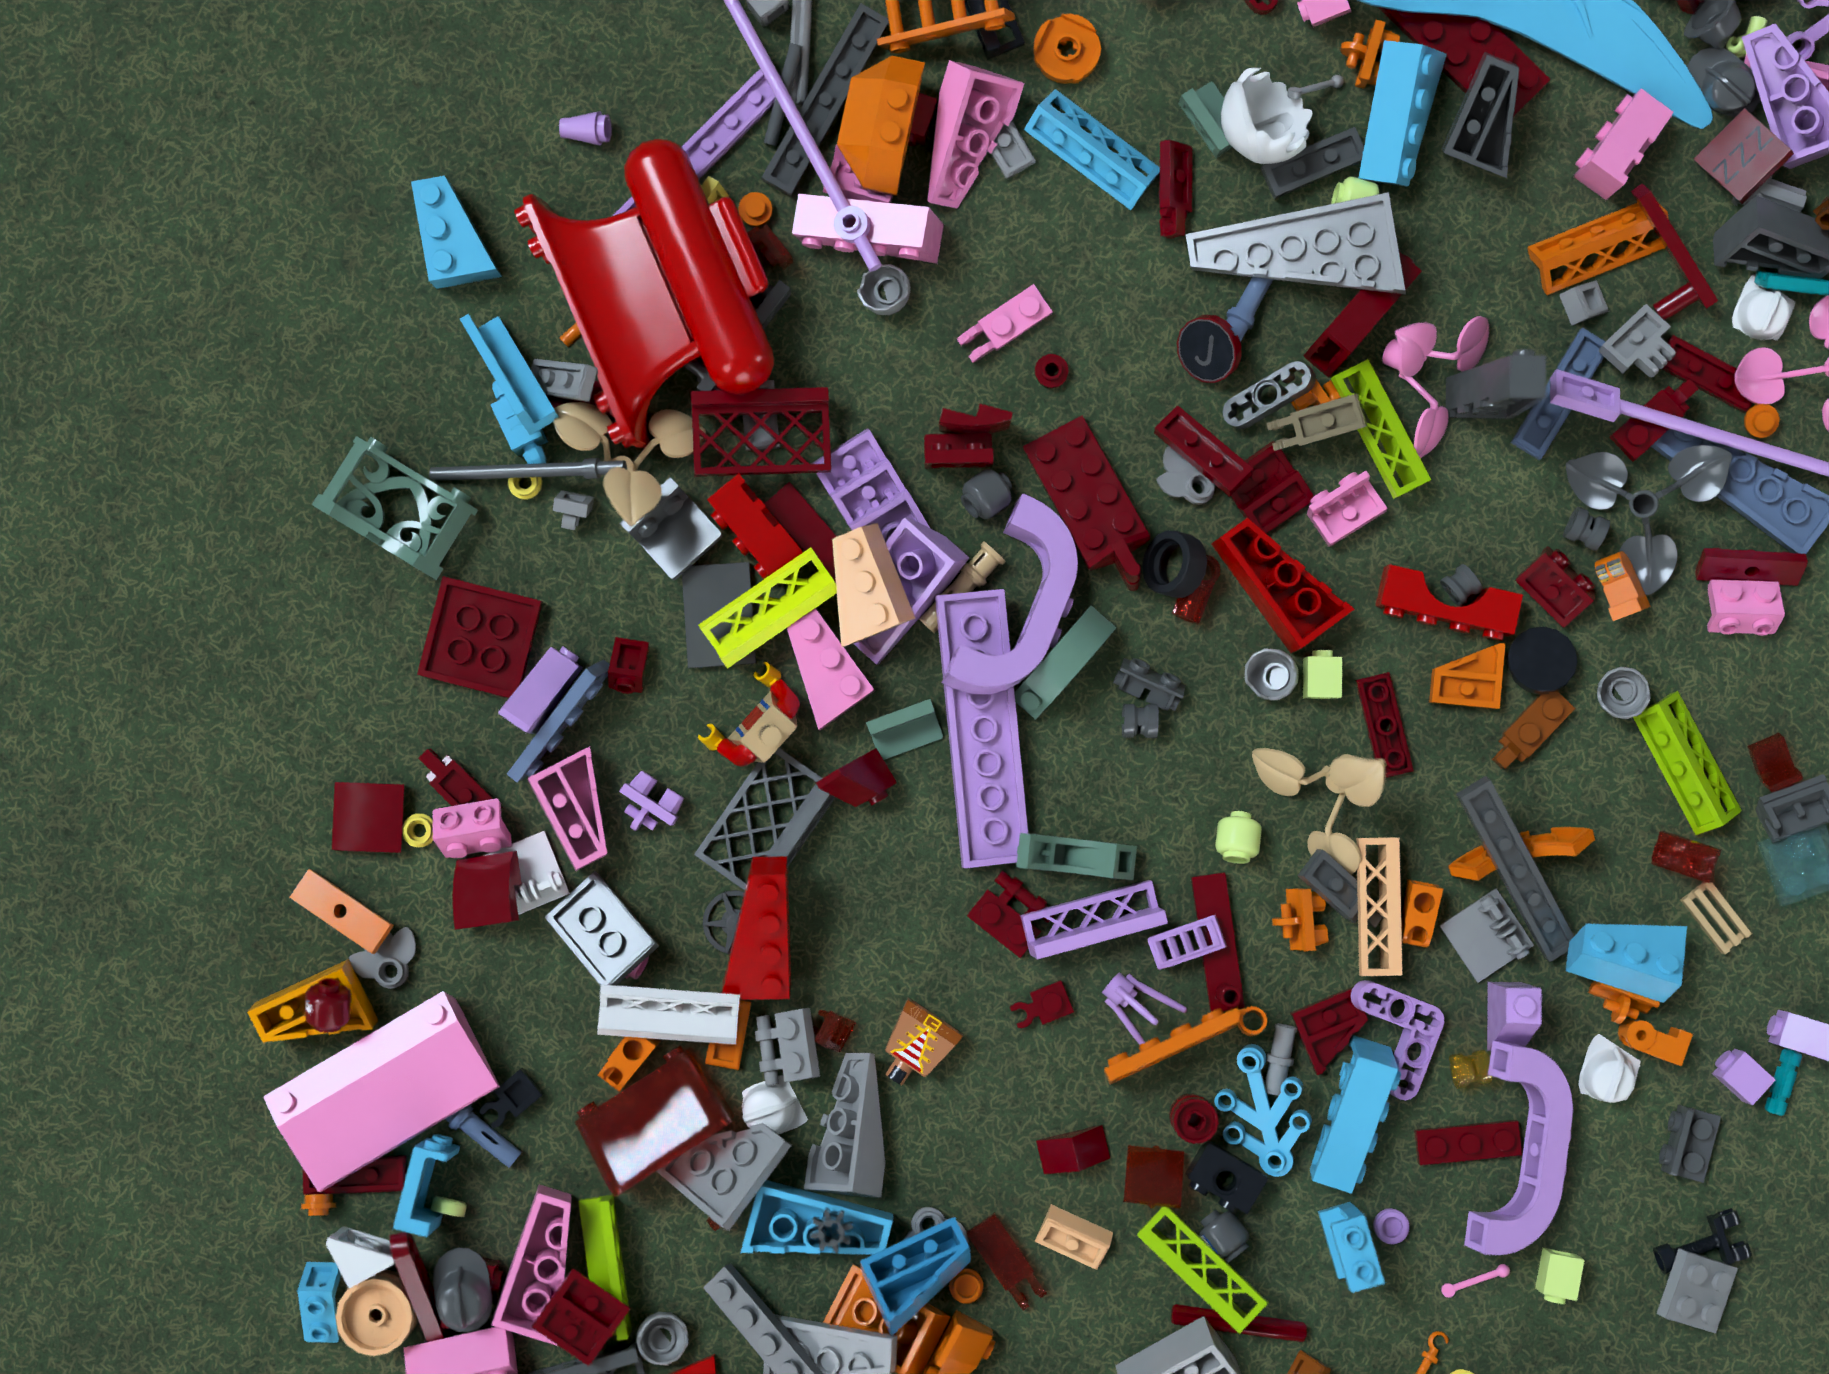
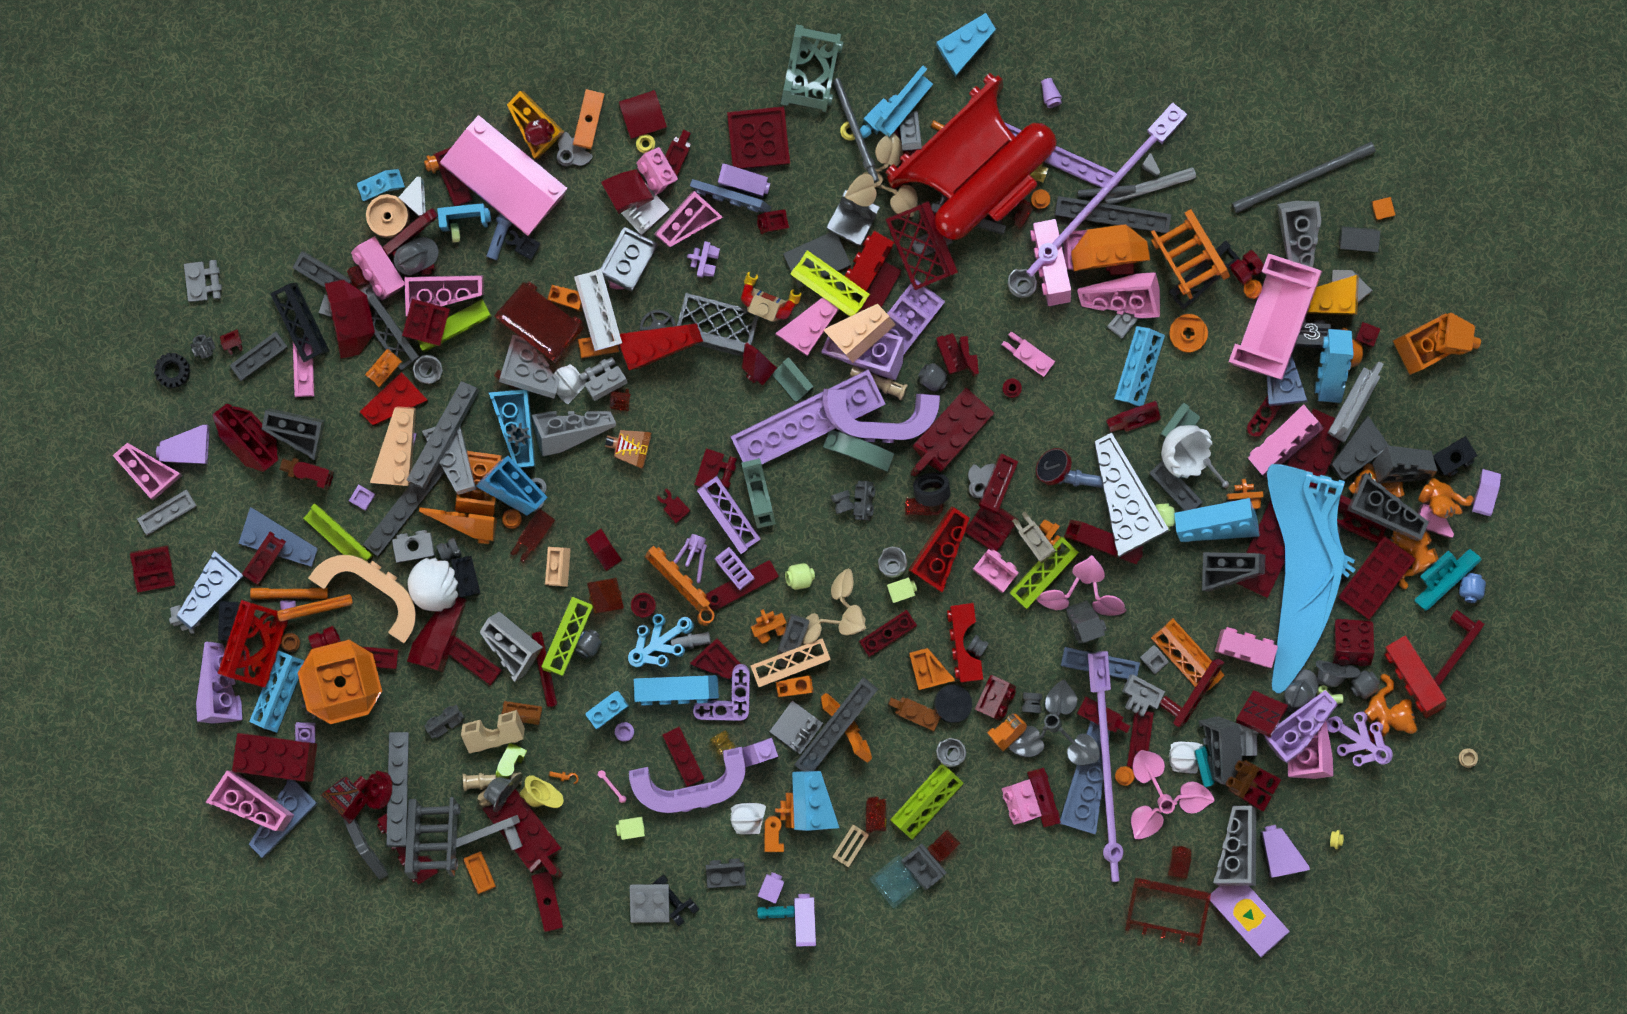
camera: 65 degrees right, 0 degrees up
(573, 507) = (845, 161): light grey tile -> none
(1246, 1181) = (621, 645): black brick -> none
(1286, 375) = (1038, 499): beam -> none

